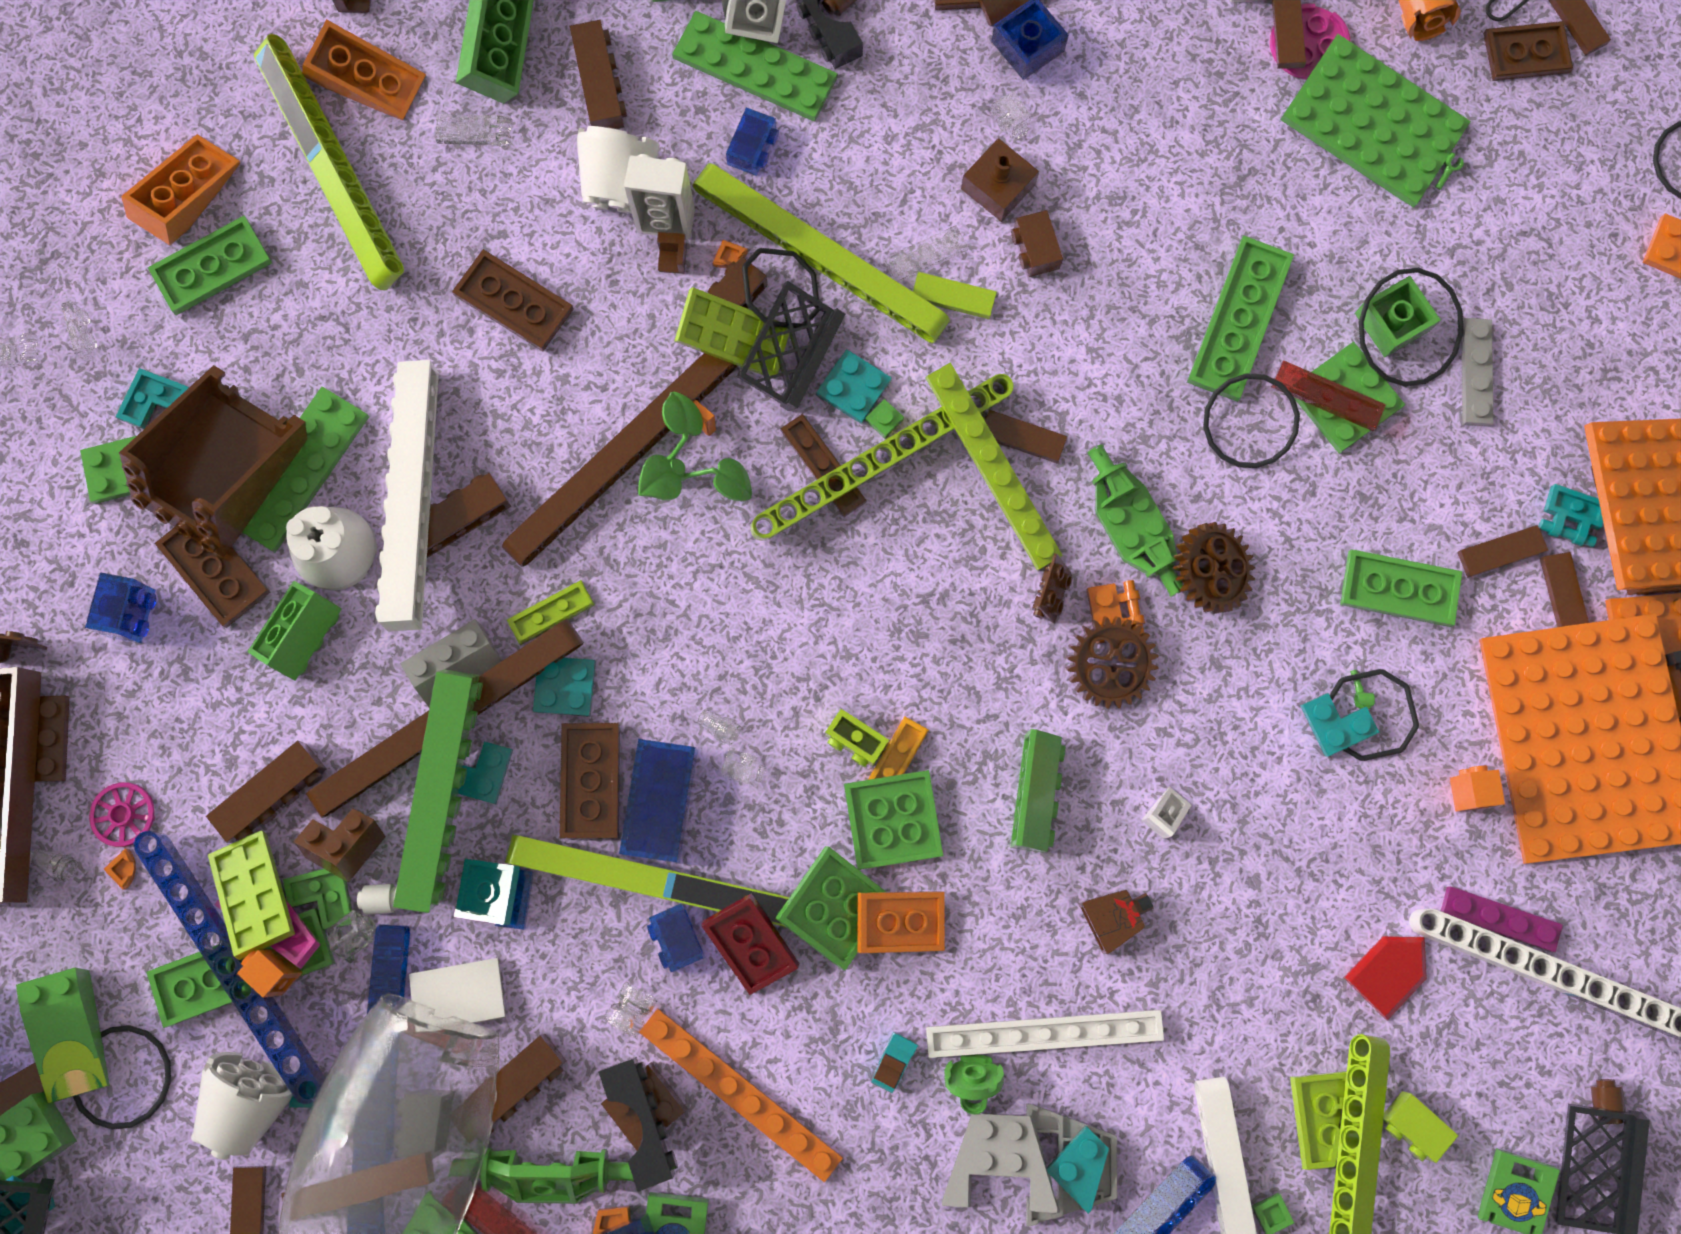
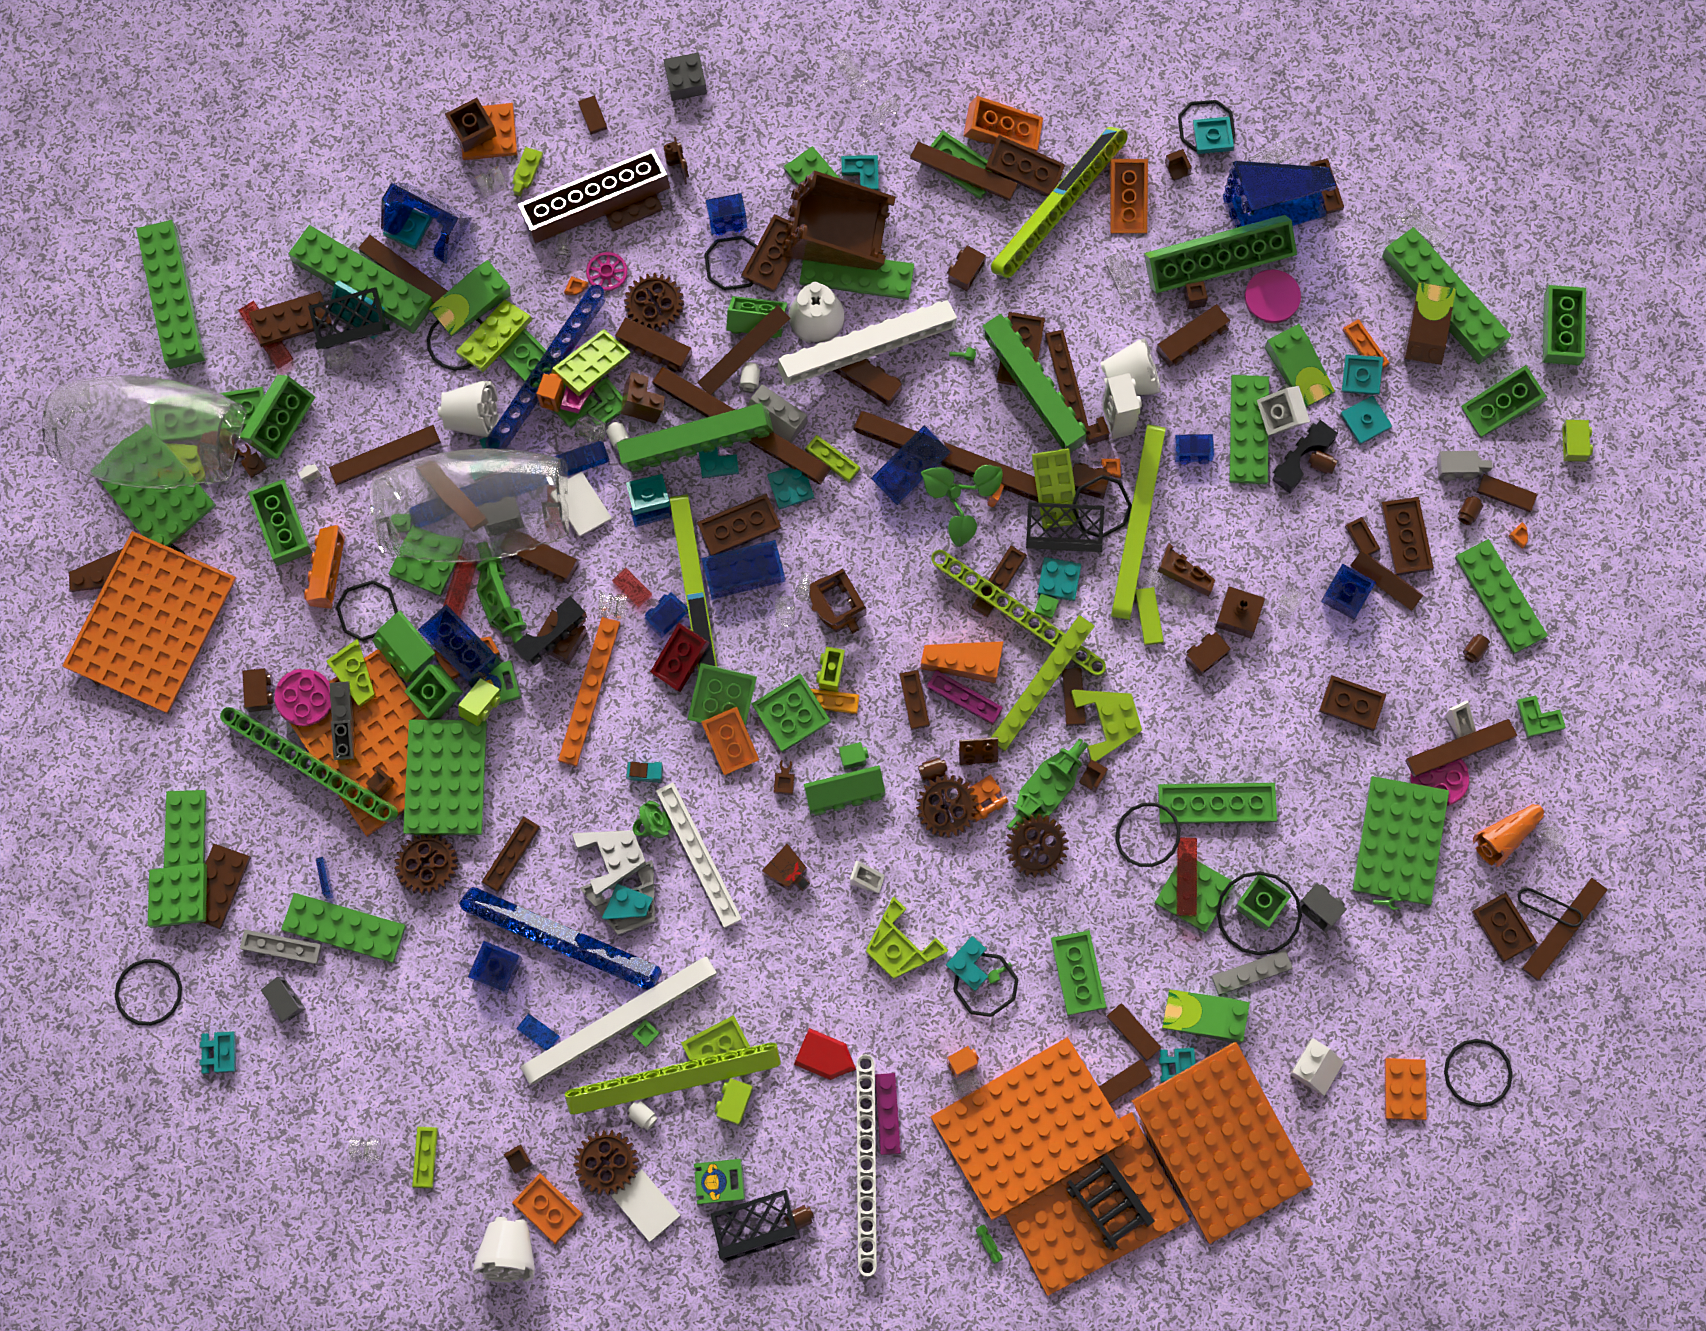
camera: 70 degrees right, 5 degrees down
(139, 1021) = (494, 335): none -> lime plate
(183, 667) = (708, 267): none -> black piece
(201, 739) = (638, 309): none -> reddish brown gear
(221, 264) = (964, 171): none -> reddish brown tile
(254, 183) = (1024, 166): none -> reddish brown plate
(337, 667) = (744, 350): none -> reddish brown tile
(362, 319) = (966, 268): none -> reddish brown brick
(379, 675) = (750, 376): none -> white brick
(488, 370) = (968, 355): none -> bright green hand
(543, 49) = (1195, 295): none -> reddish brown panel
(572, 297) = (1034, 384): none -> bright green brick
(586, 261) = (1065, 374): none -> reddish brown tile
(613, 970) = (632, 587): none -> clear red tile
(614, 508) = (902, 472): none -> clear blue brick
(771, 712) = (823, 609): none -> reddish brown animal
(910, 229) = (1180, 570): none -> reddish brown wing
(921, 547) = (965, 660): none -> orange wedge
(943, 644) = (914, 699): none -> reddish brown plate
(967, 577) = (964, 697): none -> magenta plate
(987, 869) = (784, 781): none -> reddish brown plate
(989, 759) = (853, 755): none -> bright green brick
(1051, 661) = (932, 768): none -> reddish brown brick
(1078, 394) = (1116, 715): none -> lime wing
(1143, 456) = (1093, 775): none -> reddish brown panel
(1174, 99) = (1352, 703): none -> reddish brown plate
(1281, 817) = (894, 950): none -> lime wing
(1435, 245) = (1322, 907): none -> dark grey brick
(1513, 802) = (965, 1085): none -> clear brick
(1518, 450) = (1206, 1016): none -> bright green slope
(1627, 347) = (1317, 1067): none -> white slope

